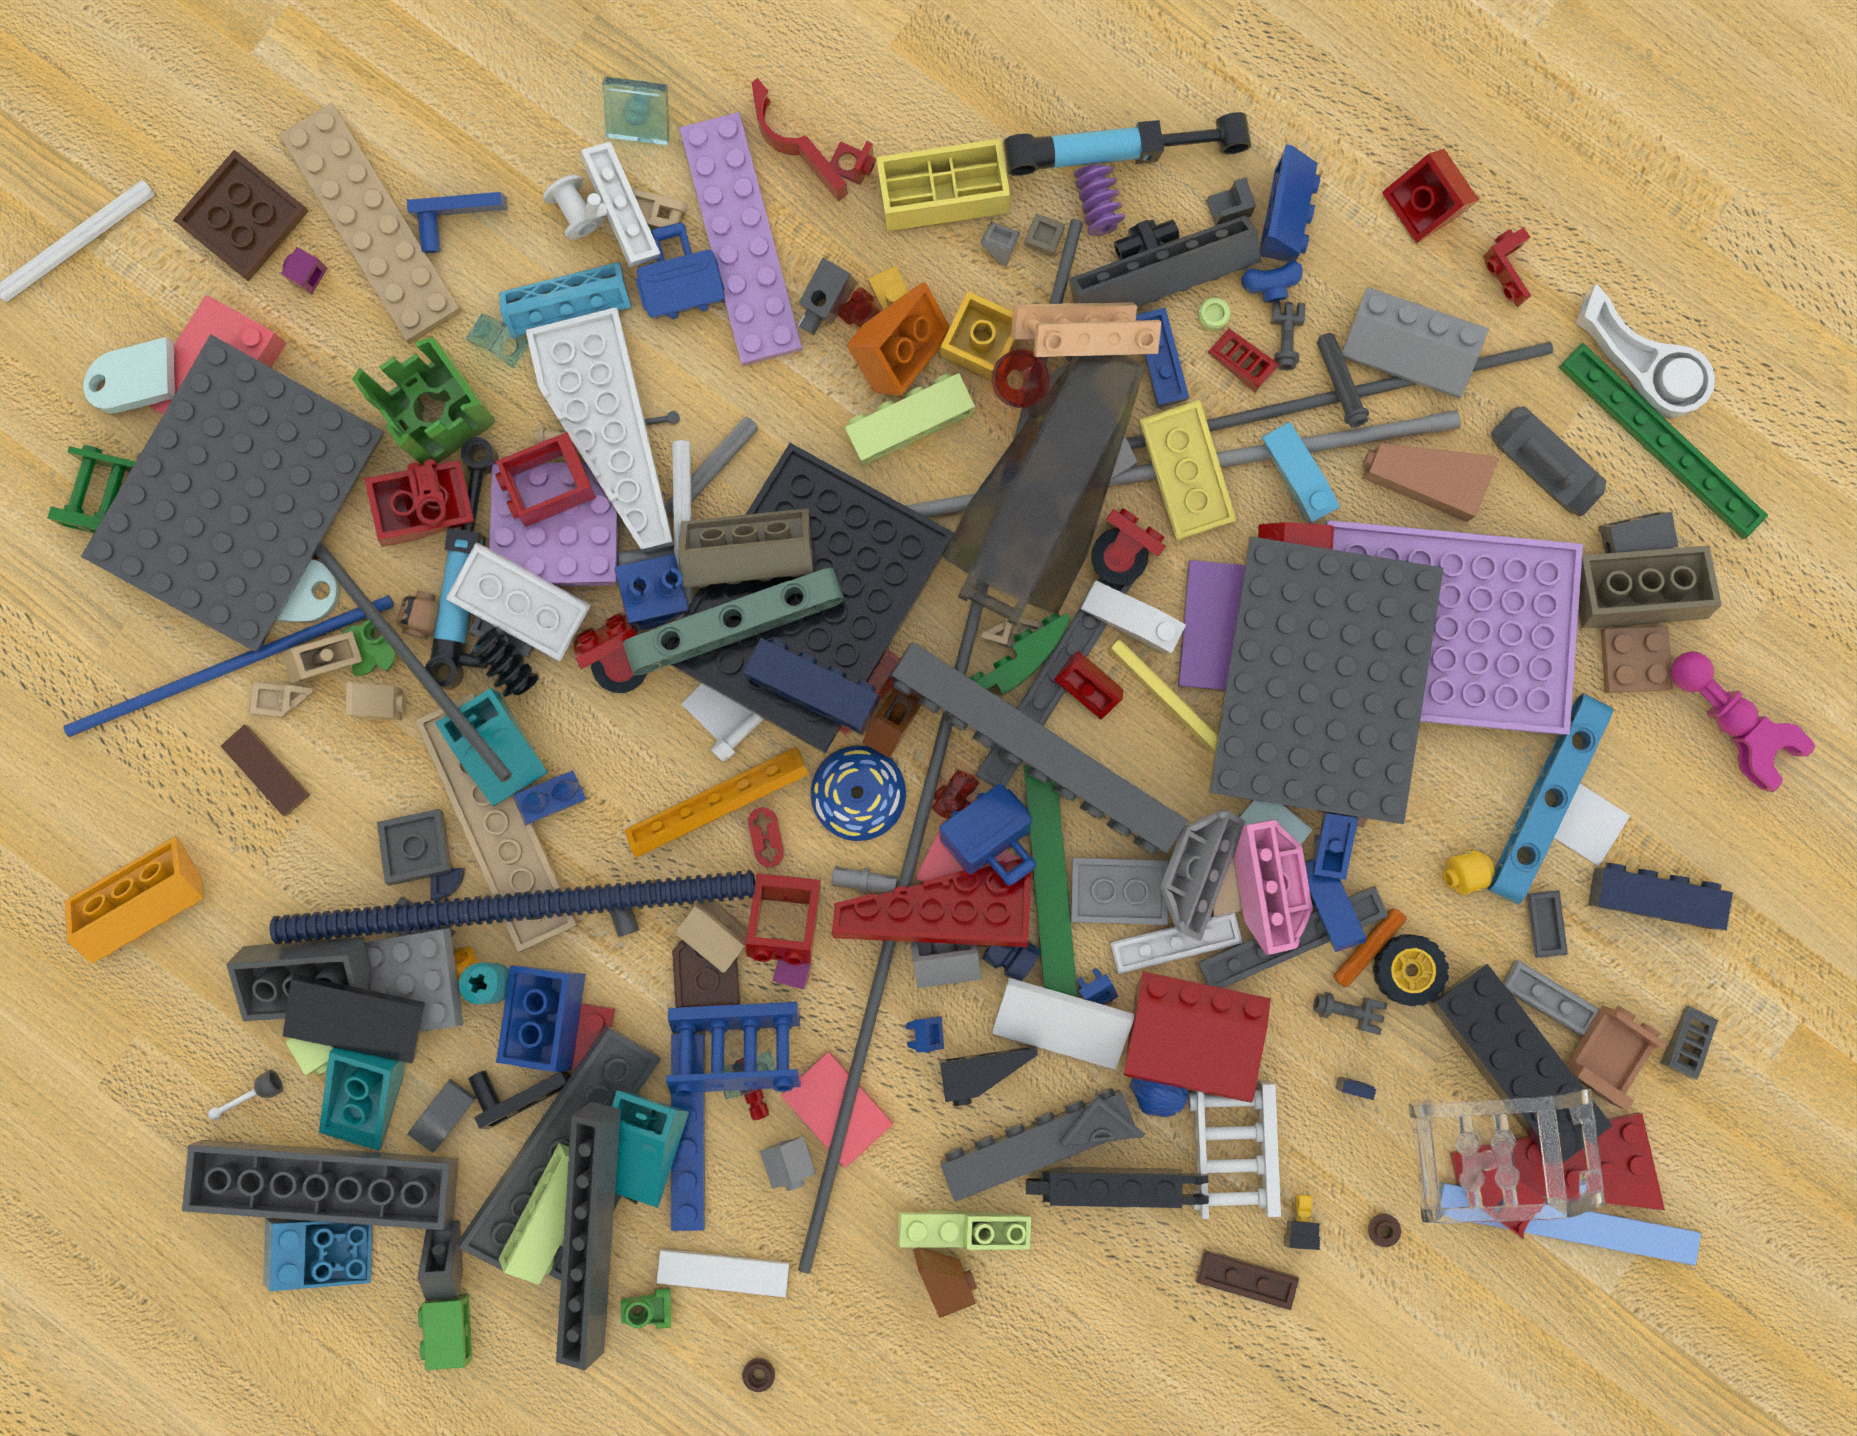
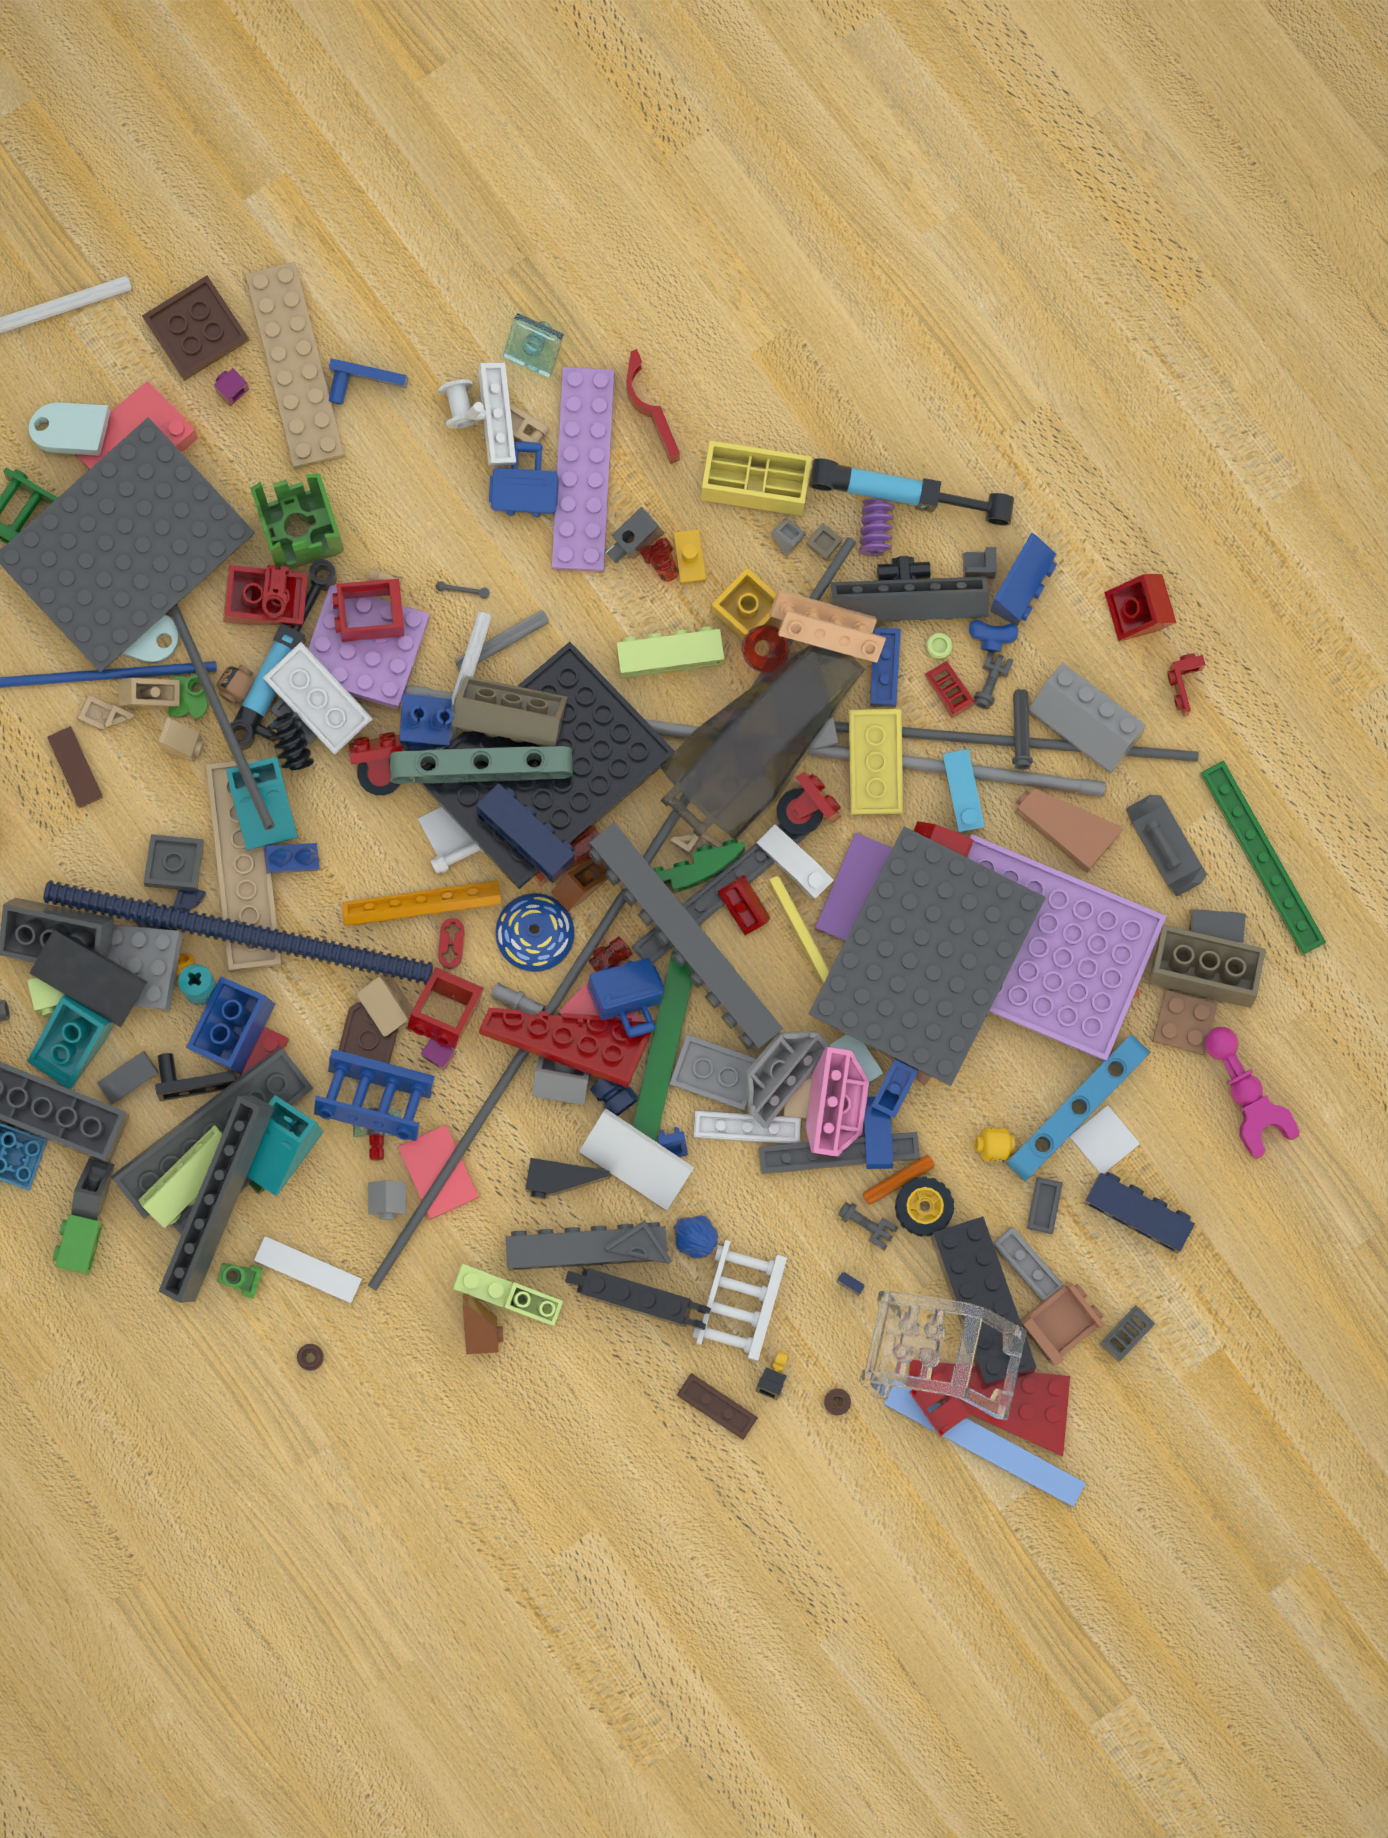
camera: 10 degrees right, 5 degrees down
(492, 333) = (362, 483): clear light blue bracket -> none
(564, 300) = (428, 476): medium azure fence -> none
(593, 392) = (428, 555): white wing -> none
(624, 922) = (319, 972): dark grey hinge -> none
(689, 1160) = (311, 1170): blue plate -> none
(864, 163) = (700, 441): red bracket -> none
(899, 341) = (681, 589): orange slope -> none
(927, 1034) = (528, 1135): blue tile -> none
(1197, 1036) = (737, 1200): red slope -> none
(1664, 375) = (1280, 807): white animal -> none

